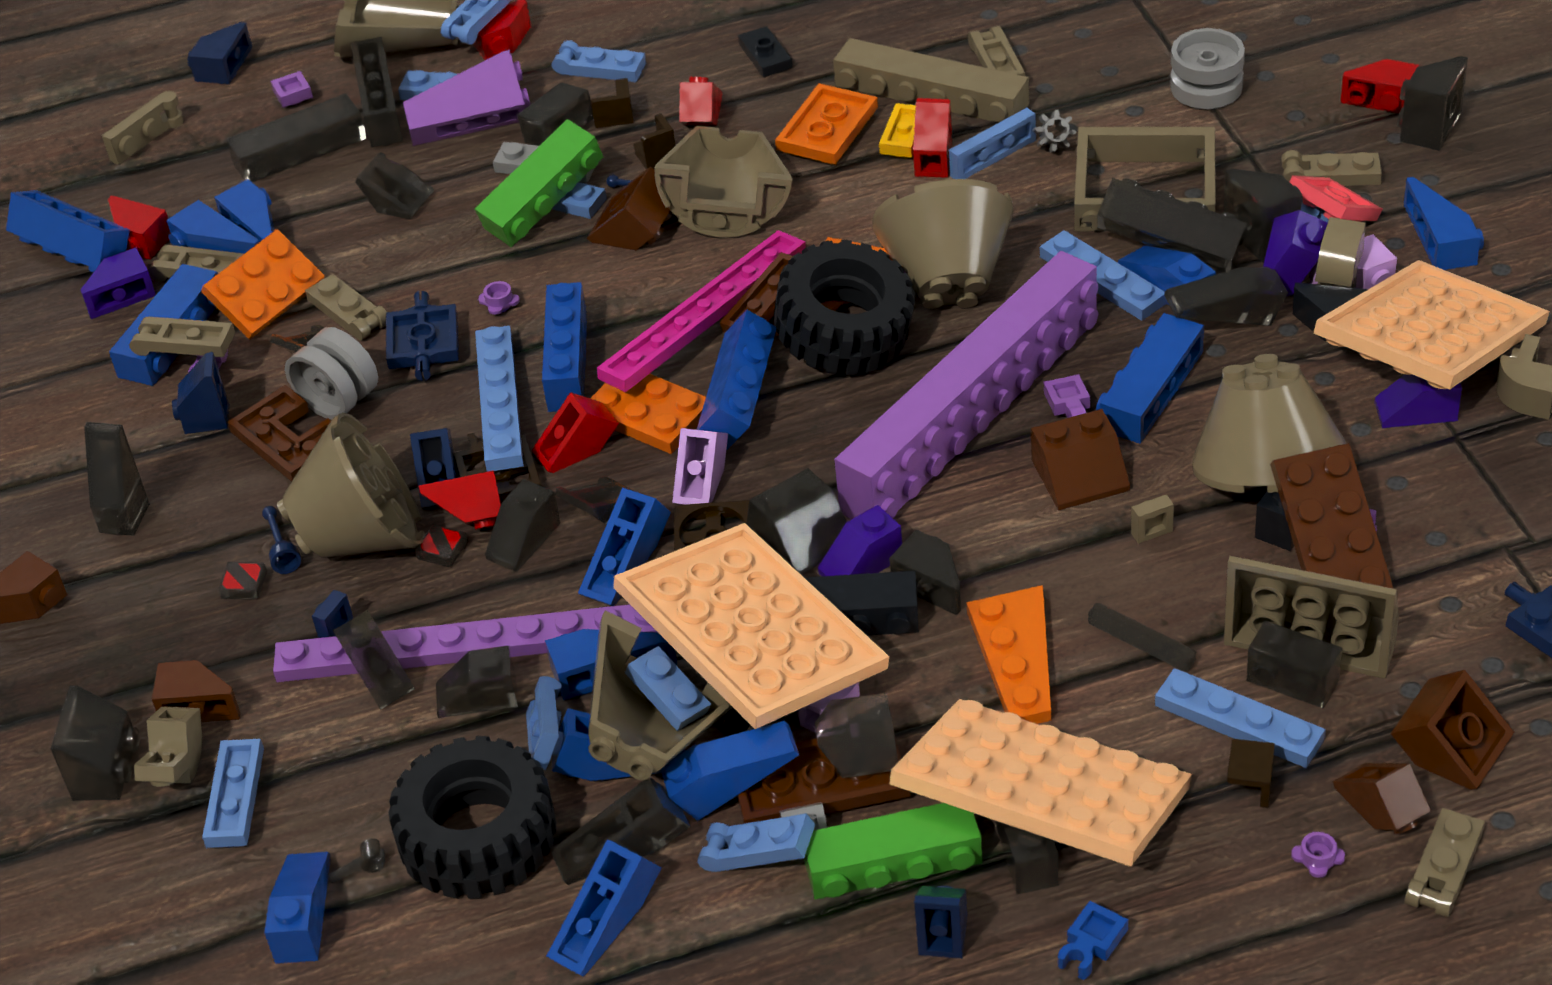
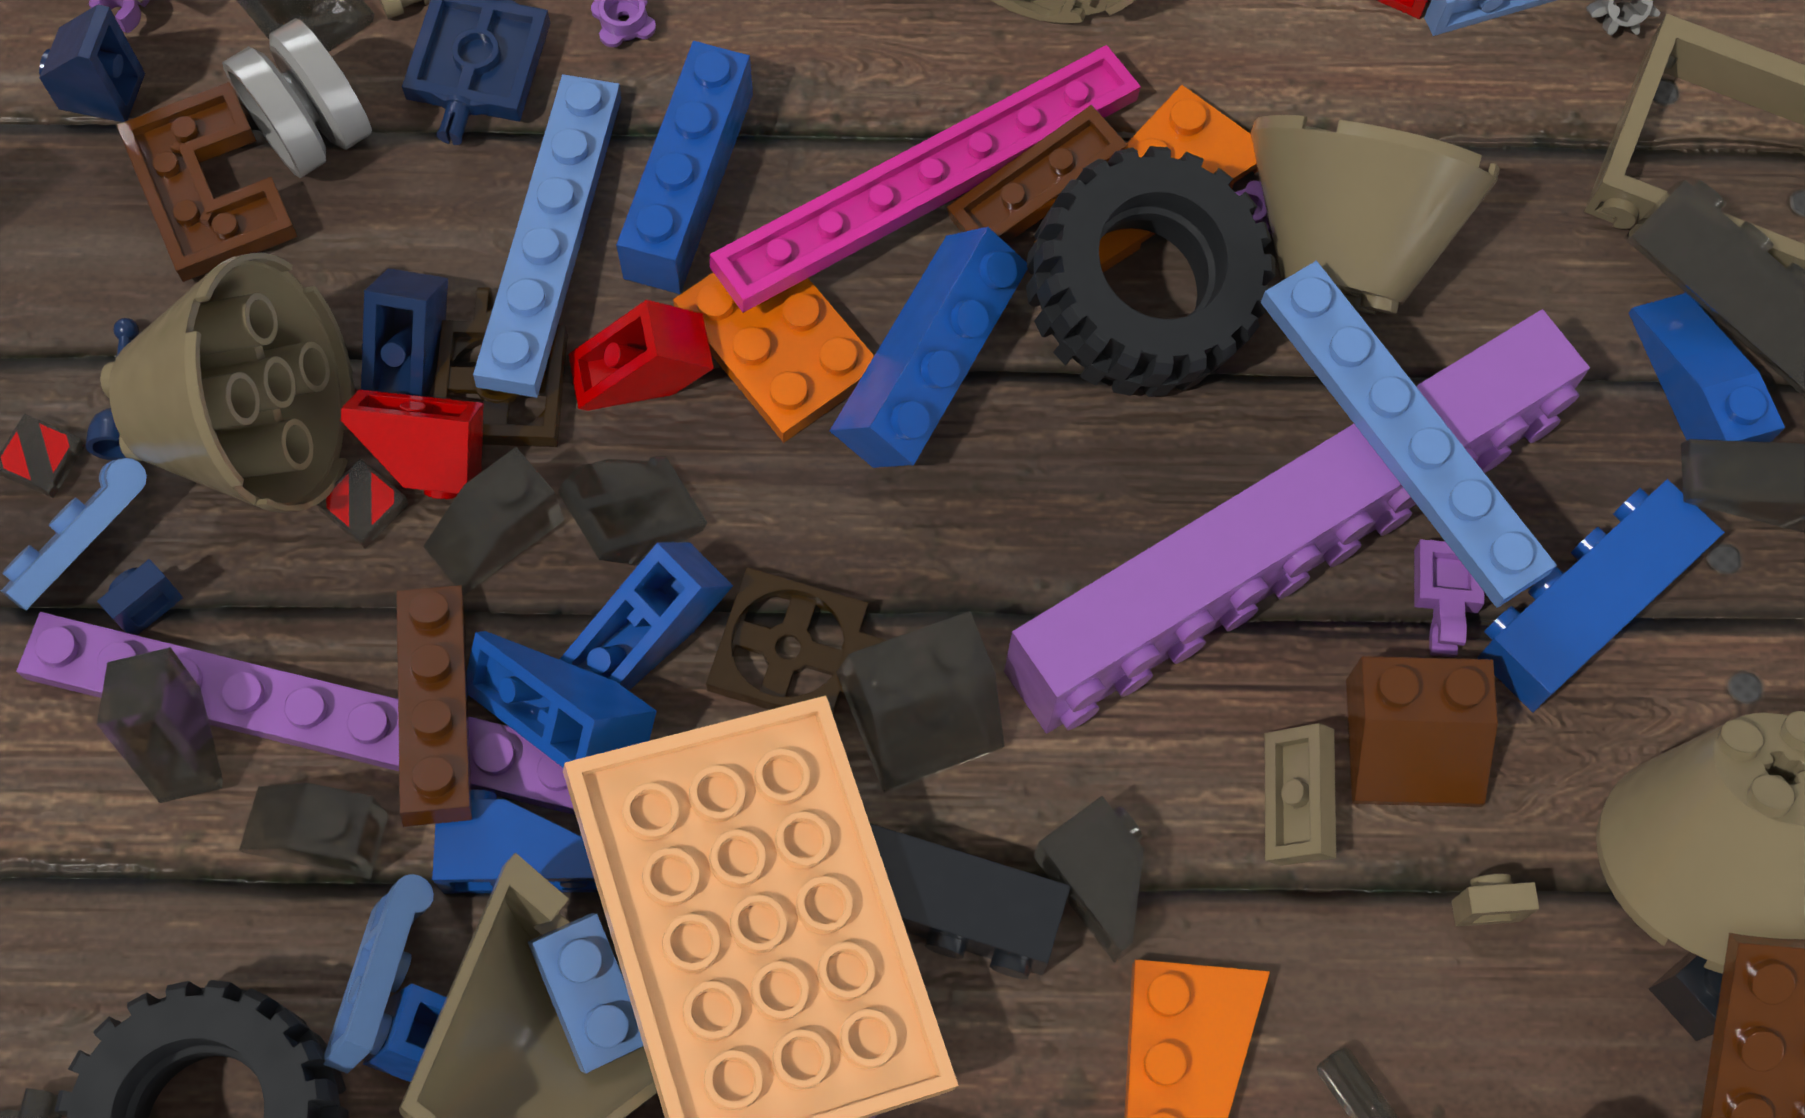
camera: 10 degrees right, 25 degrees up
(281, 598) = (75, 529): none -> medium blue plate
(524, 606) = (433, 707): none -> reddish brown plate
(580, 585) = (554, 703): none -> blue slope
(699, 465) = (811, 502): lavender slope -> none
(863, 545) = (1004, 786): dark purple slope -> none
(1010, 316) = (1408, 434): none -> medium blue plate
(1025, 506) = (1300, 795): none -> dark tan plate
(1114, 280) = (1599, 330): medium blue plate -> none

